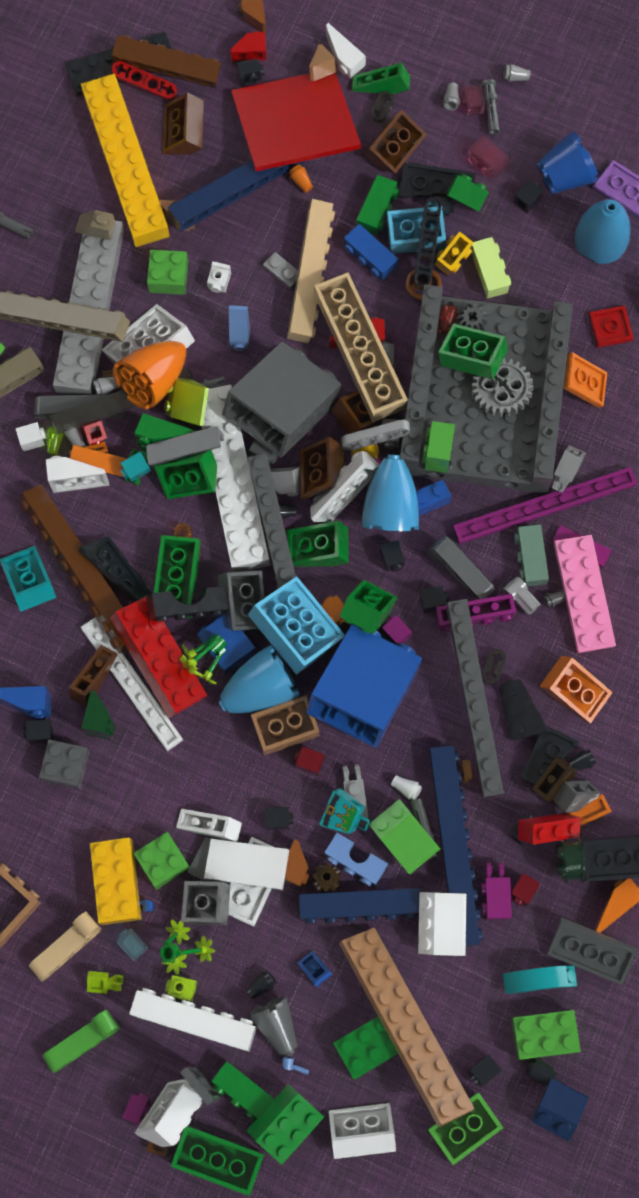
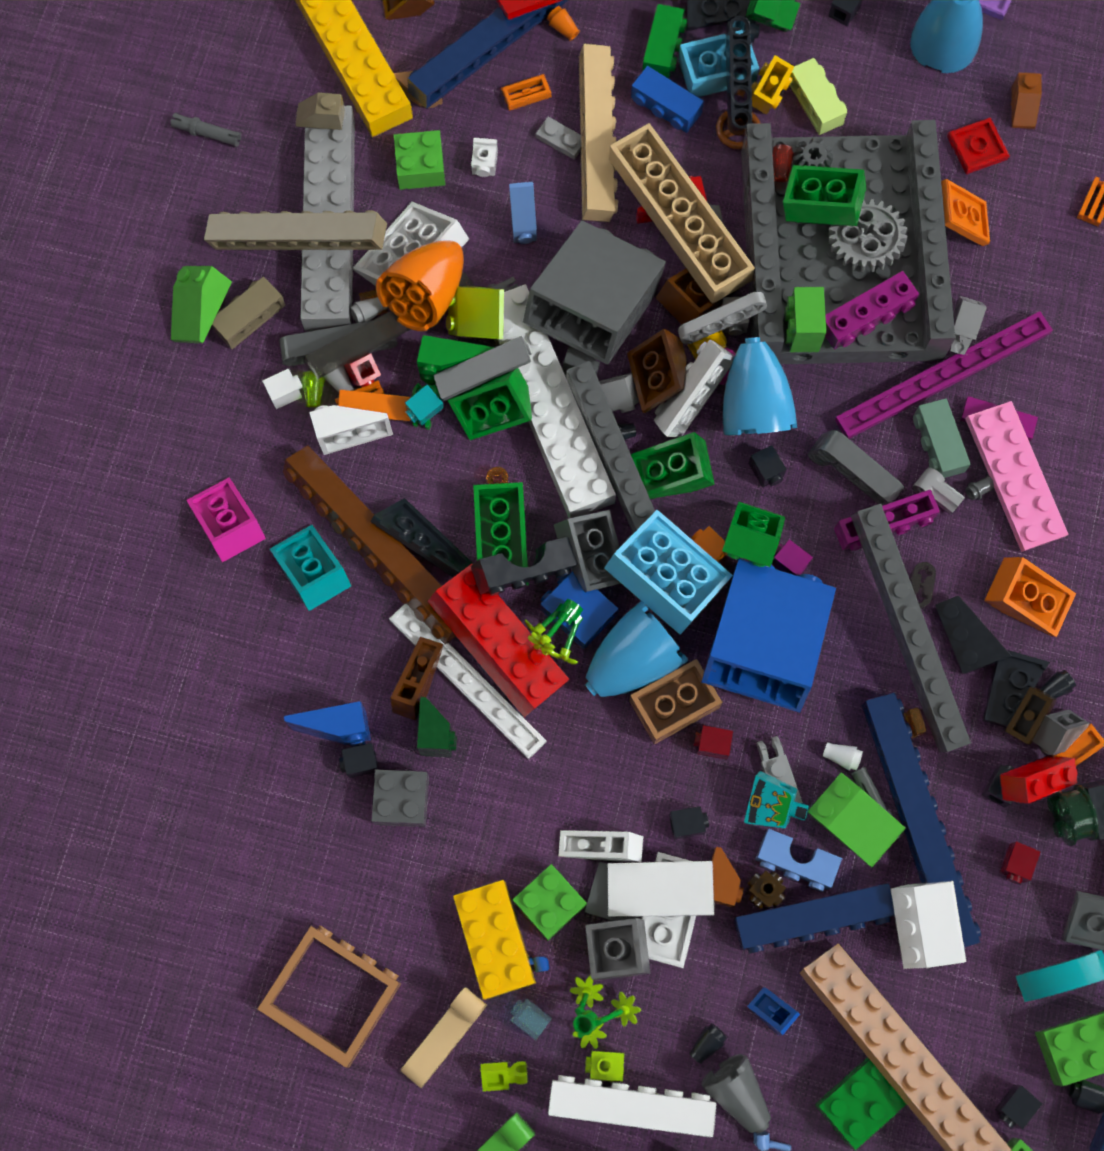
camera: 10 degrees left, 0 degrees up
(262, 232) = (527, 95): none -> orange tile
(433, 497) = (807, 383): blue brick -> none
(433, 598) = (829, 511): black brick -> none
(491, 446) = (869, 310): none -> magenta brick
(497, 895) = (986, 874): magenta hinge -> none

